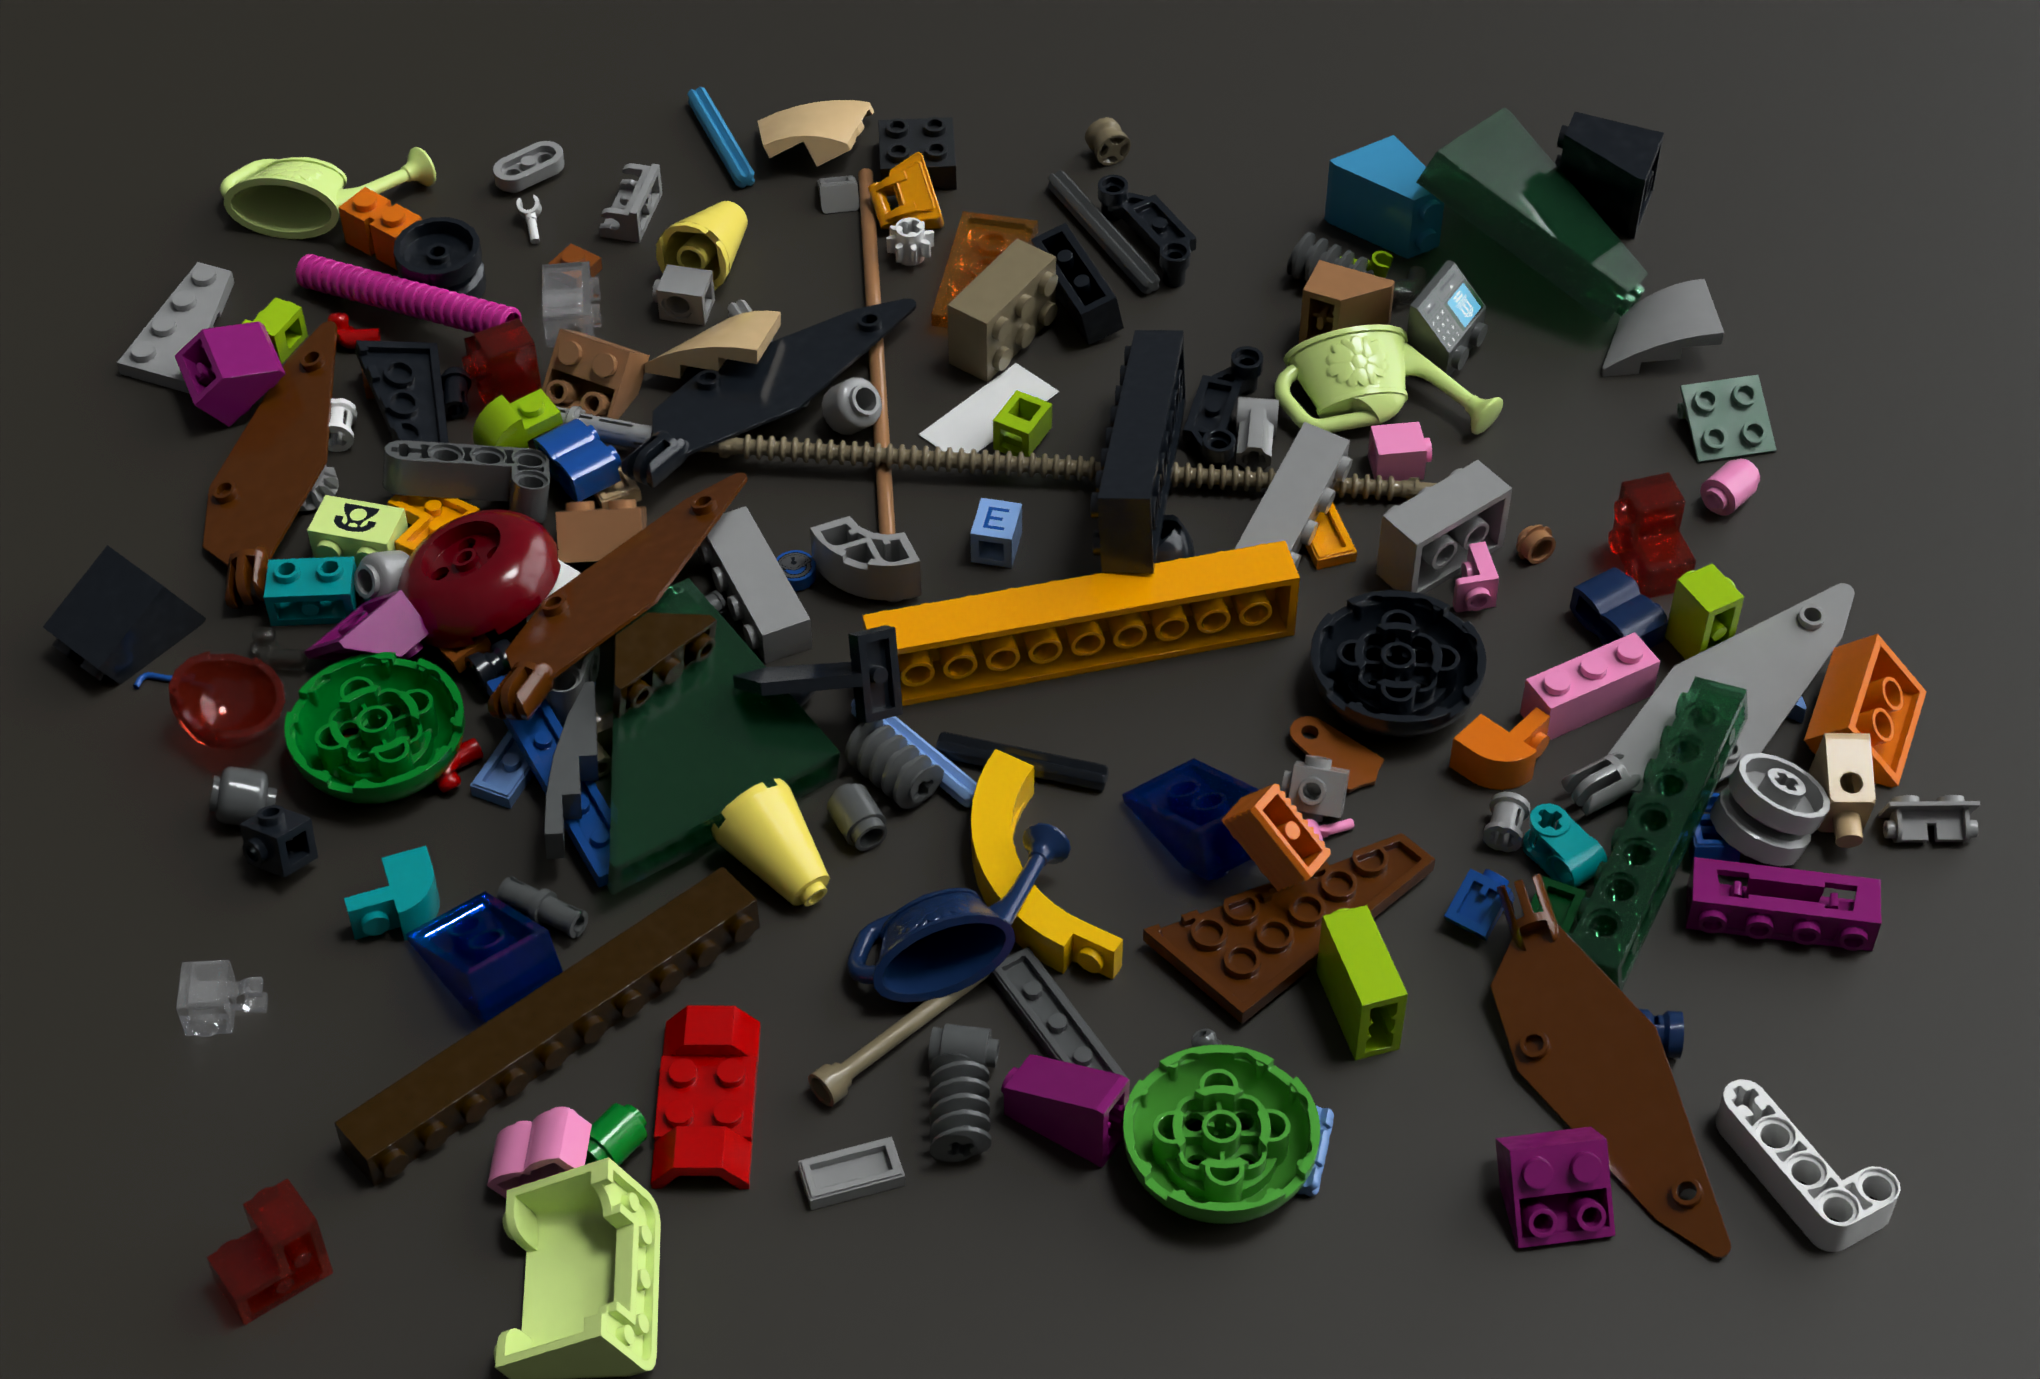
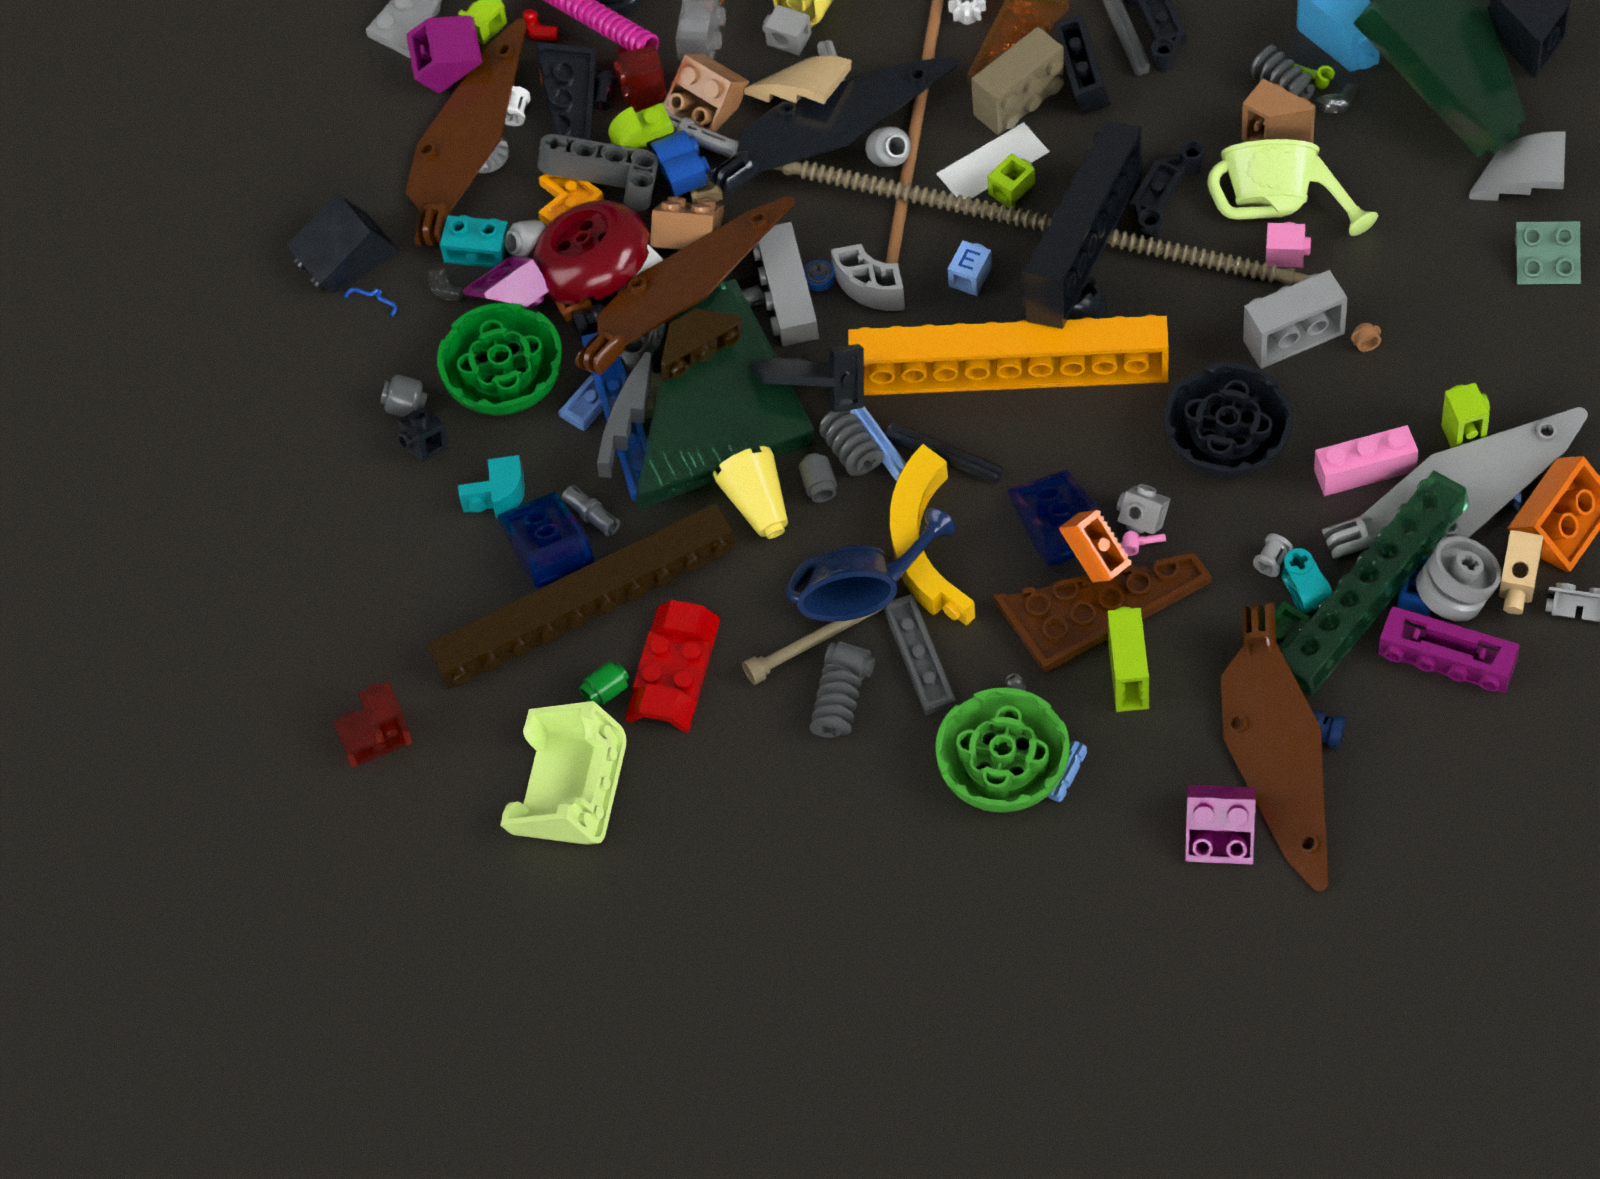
camera: 20 degrees right, 10 degrees up
(211, 996) = (363, 539): clear brick -> none
(226, 699) = (403, 321): clear red cylinder -> none
(354, 528) = (512, 197): yellowish green brick -> none
(469, 752) = (562, 385): red arm -> none
(538, 1149) = (554, 685): bright pink brick -> none
(851, 1173) = (756, 733): light grey tile -> none
(1069, 1105) = (907, 712): magenta slope -> none
(1255, 429) = (1186, 205): light grey piece -> none
(1300, 491) = (1193, 276): light grey brick -> none
(1331, 542) = (1212, 301): light orange tile -> none
(1340, 748) = (1169, 481): dark orange piece -> none
(1447, 320) = (1353, 140): dark grey slope -> none
(1477, 903) = (1228, 612): blue bracket -> none
(1479, 581) = (1312, 367): bright pink bracket -> none
(1499, 757) = (1286, 506): orange brick -> none
(1615, 608) = (1408, 402): dark blue brick -> none
(1649, 534) = (1449, 345): clear red brick -> none
(1730, 486) = (1529, 311): bright pink brick -> none
(1752, 1121) = (1390, 836): white beam -> none

